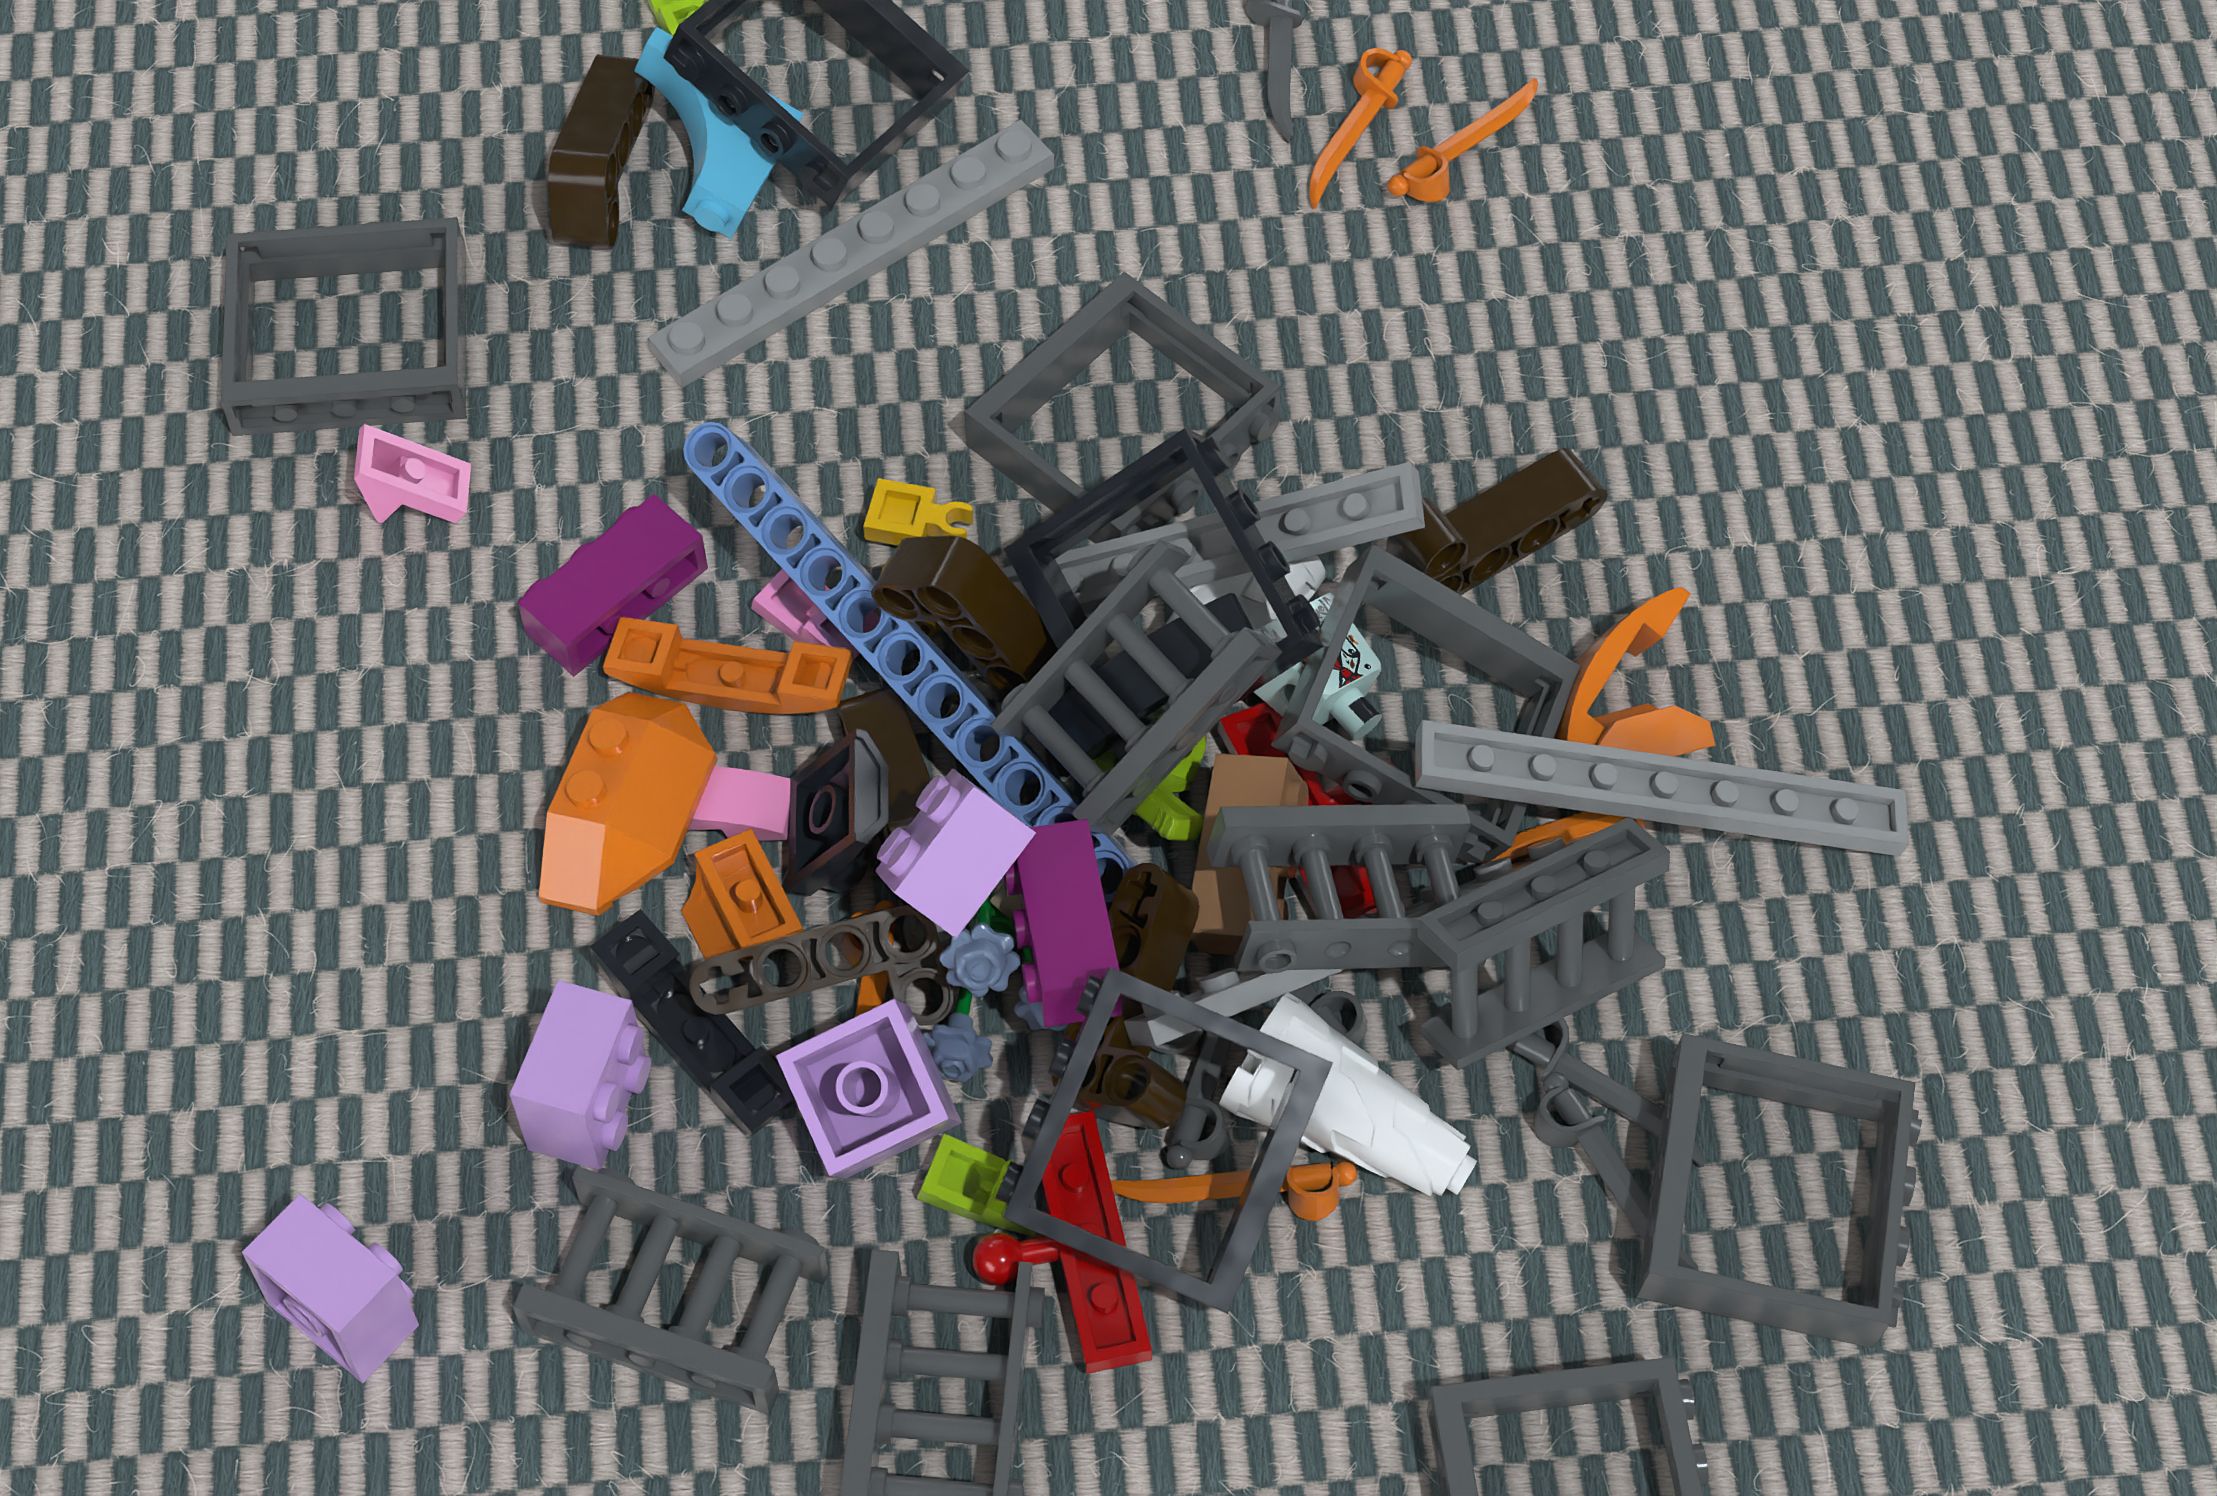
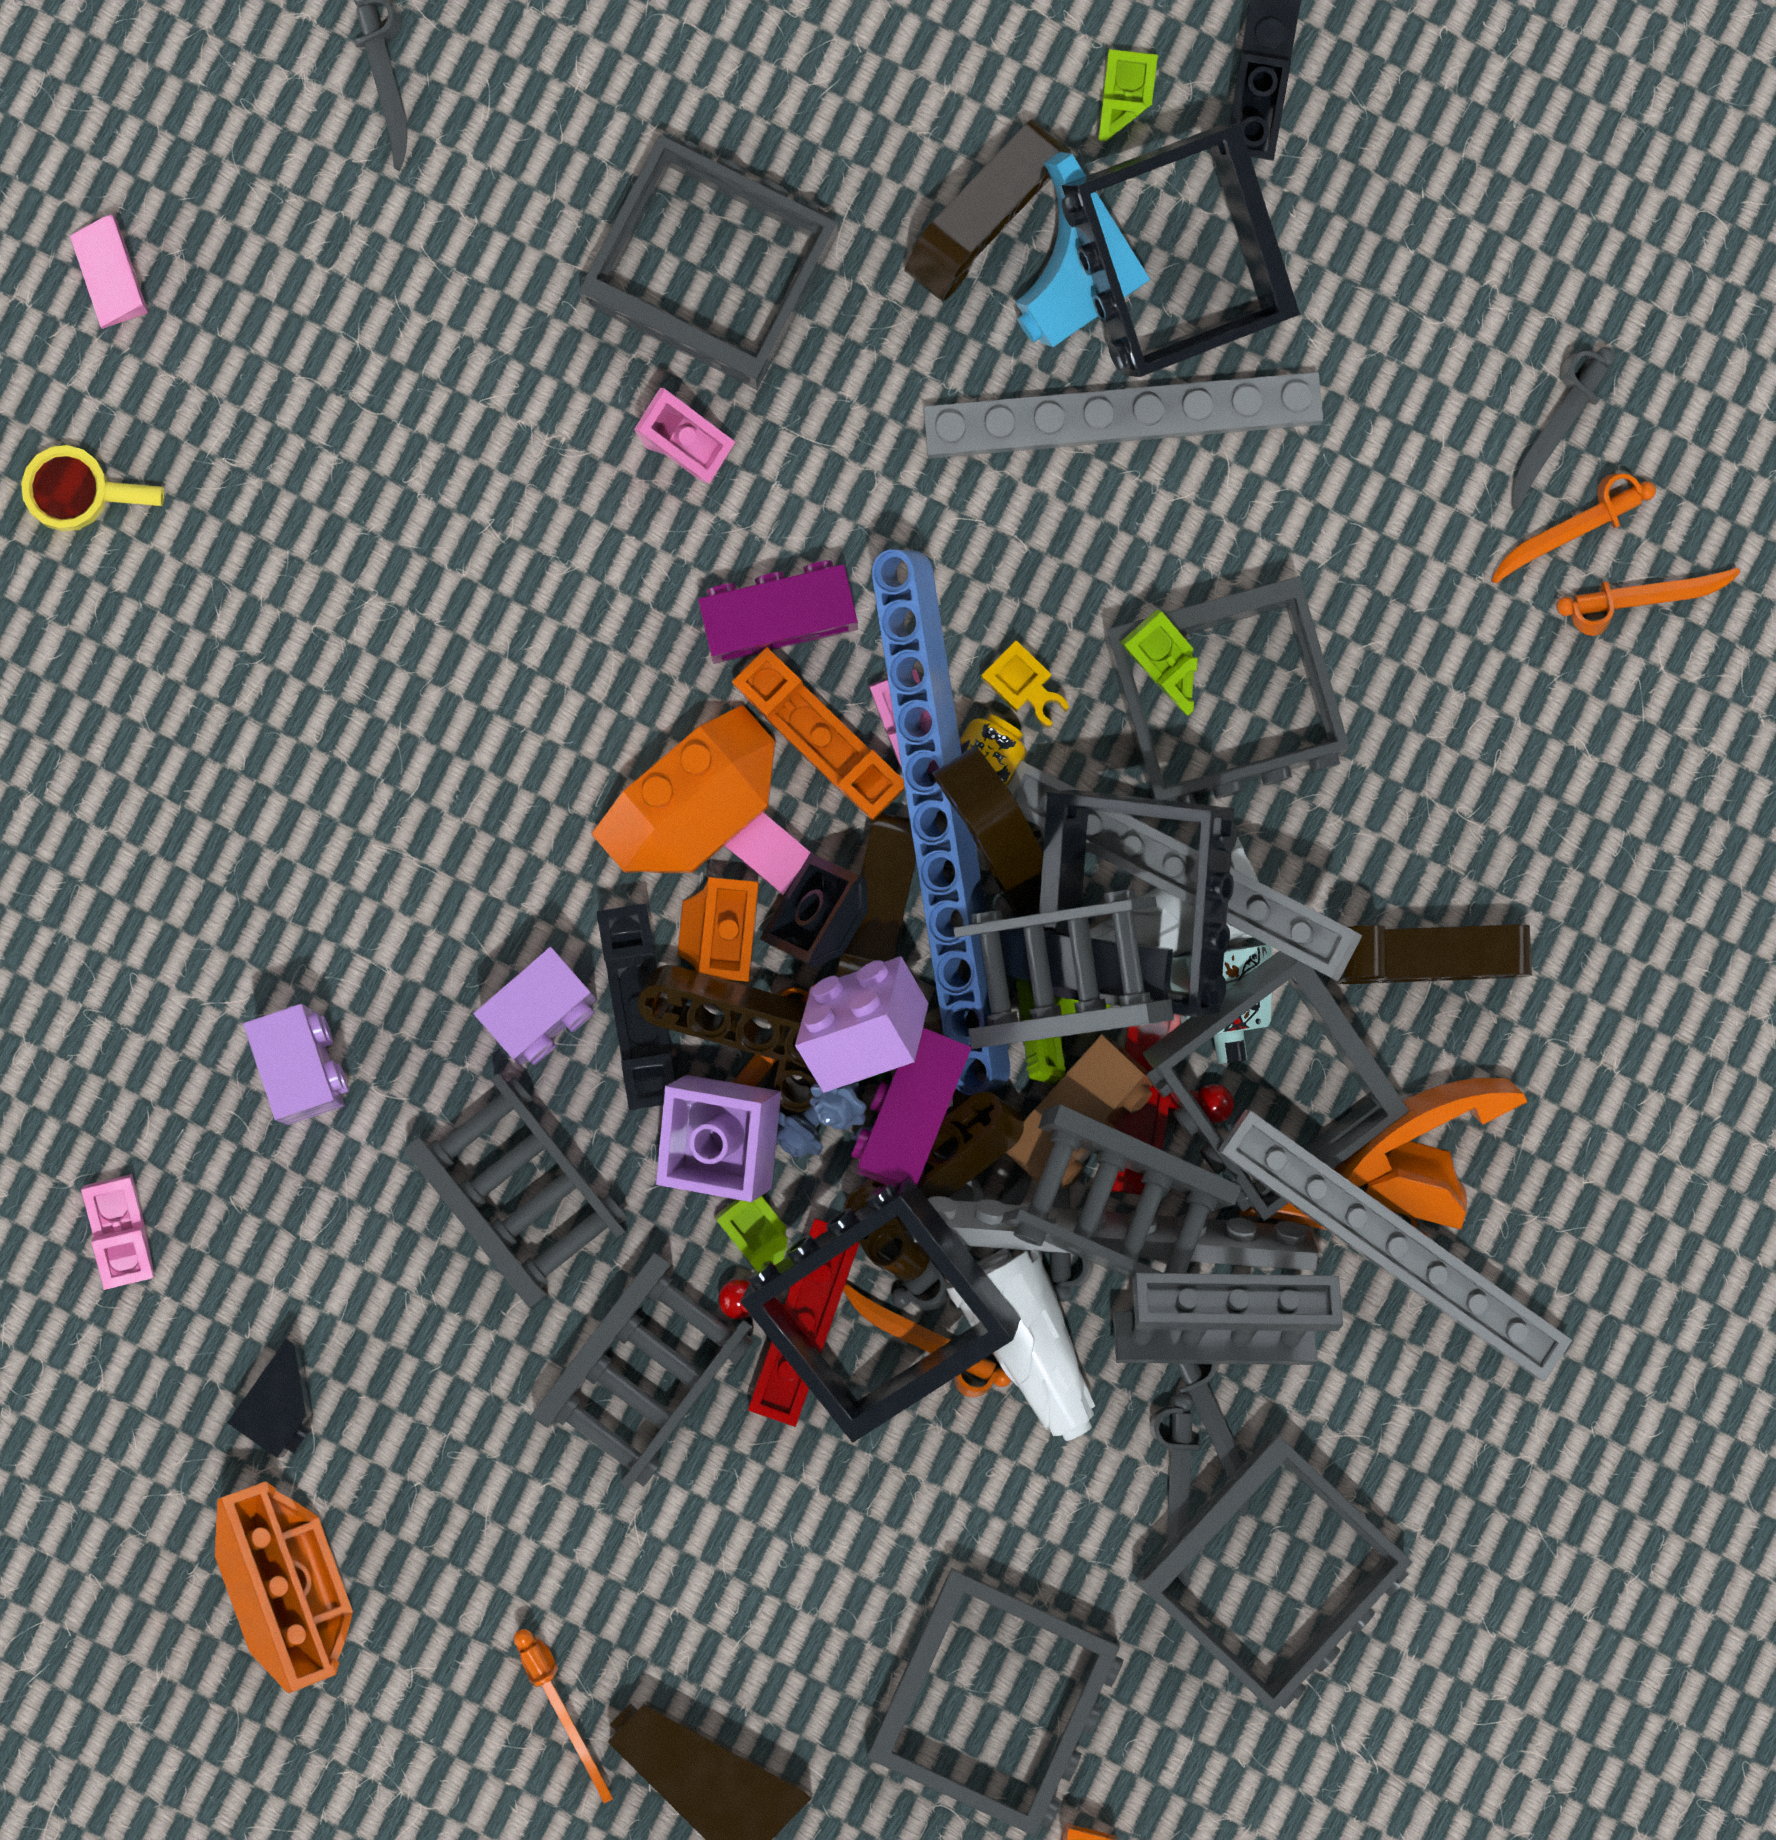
camera: 30 degrees right, 25 degrees up
(1041, 402) = (1165, 658): none -> lime slope

